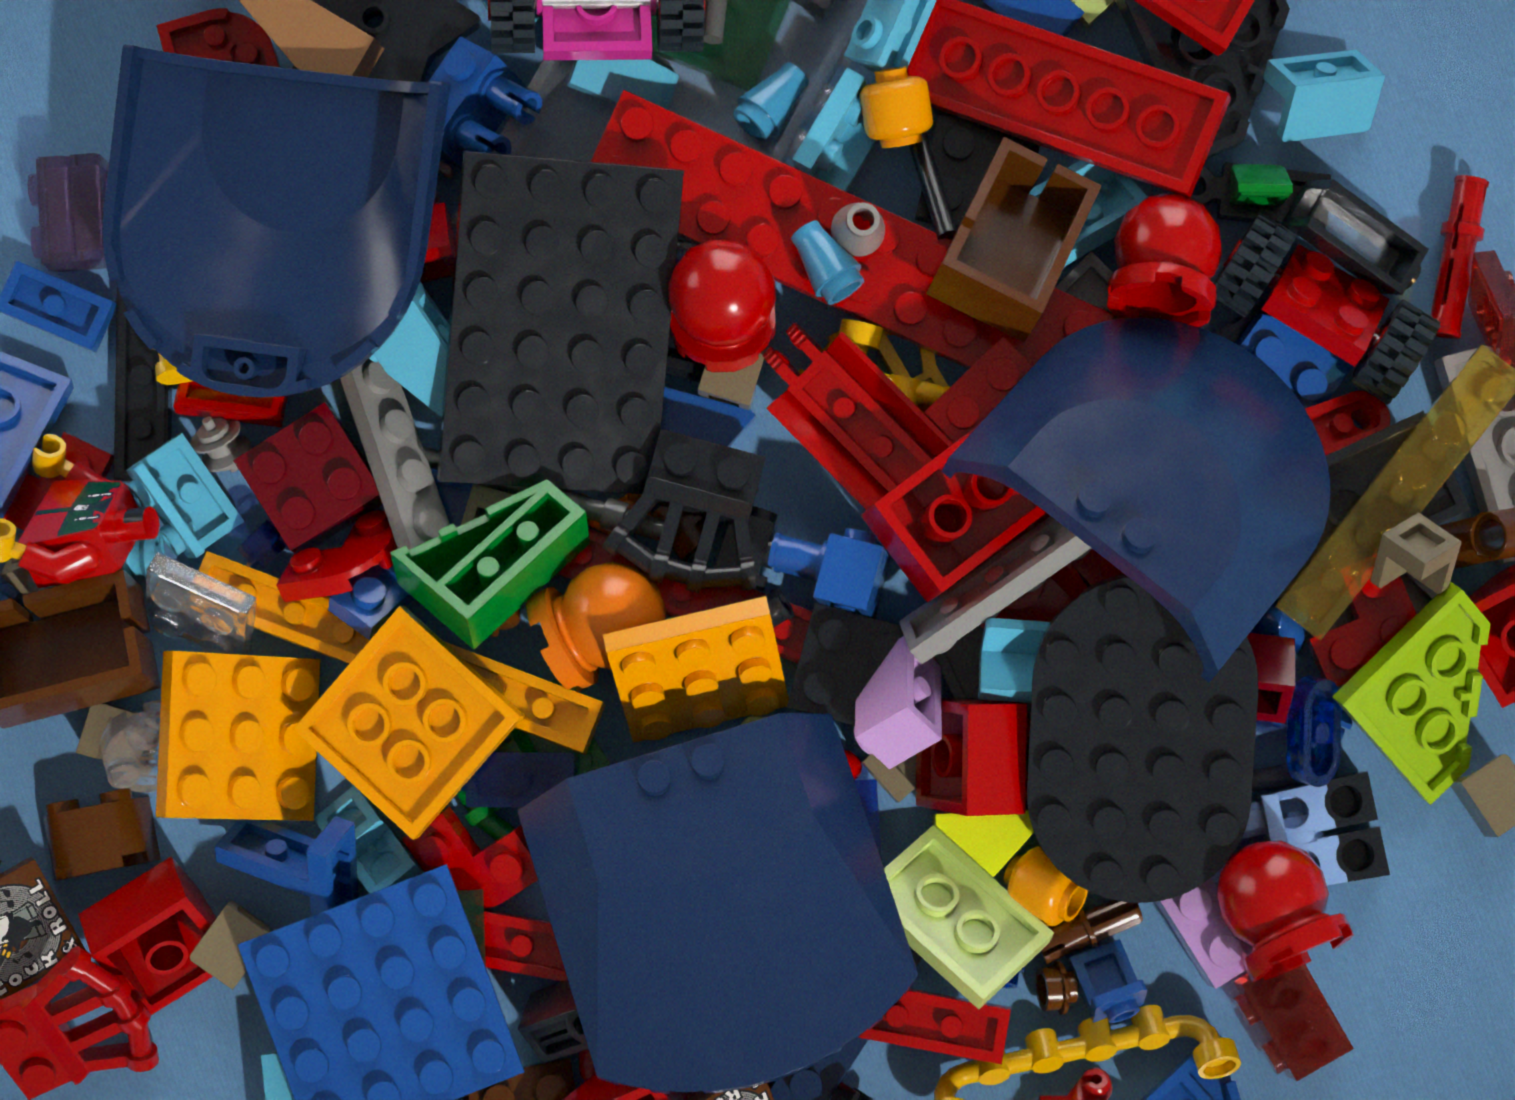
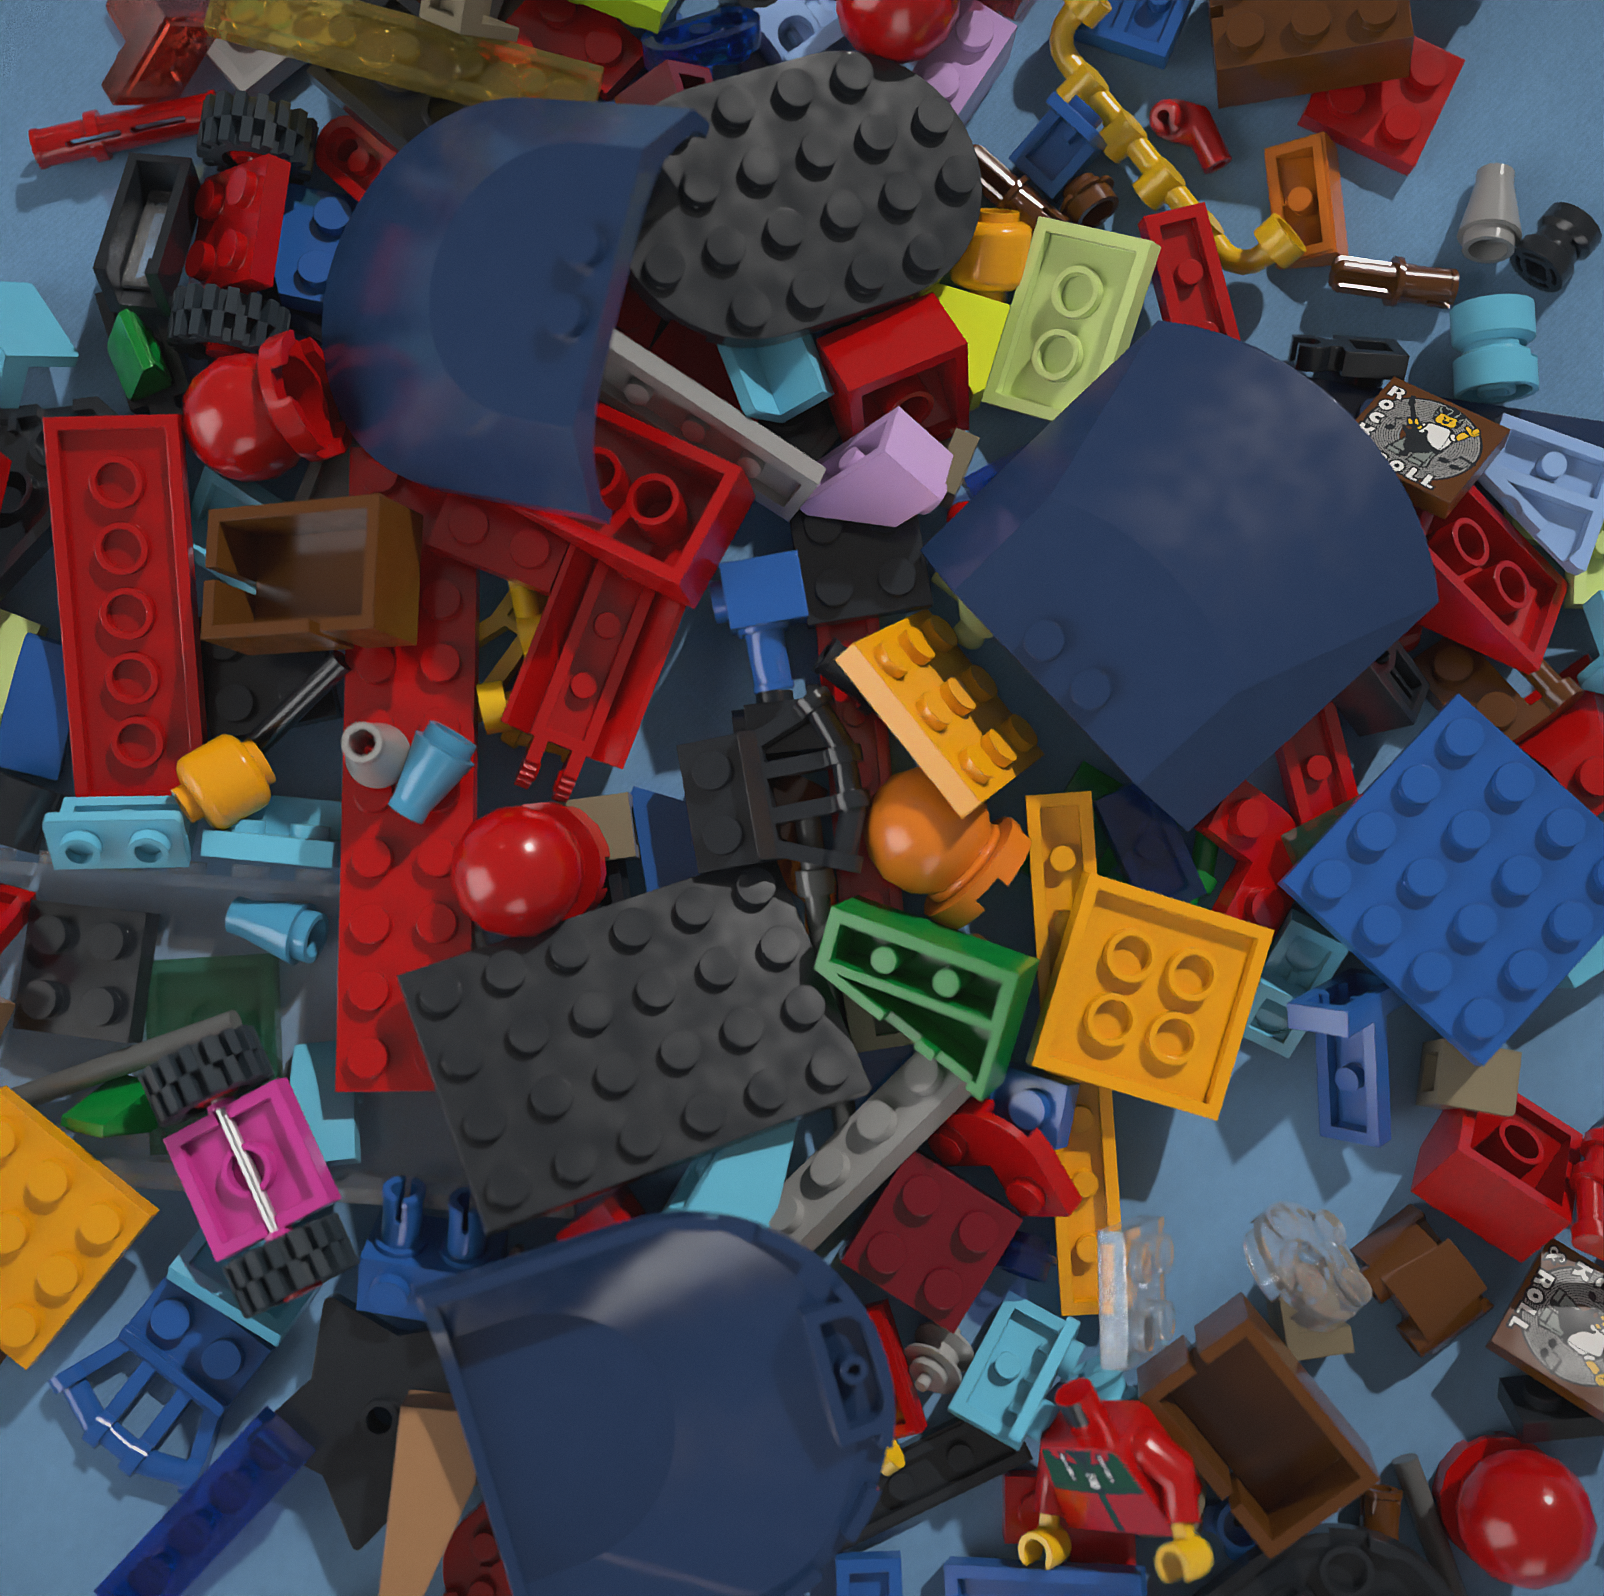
camera: 120 degrees left, 0 degrees up
(232, 737) = (1255, 1186): light orange plate -> none

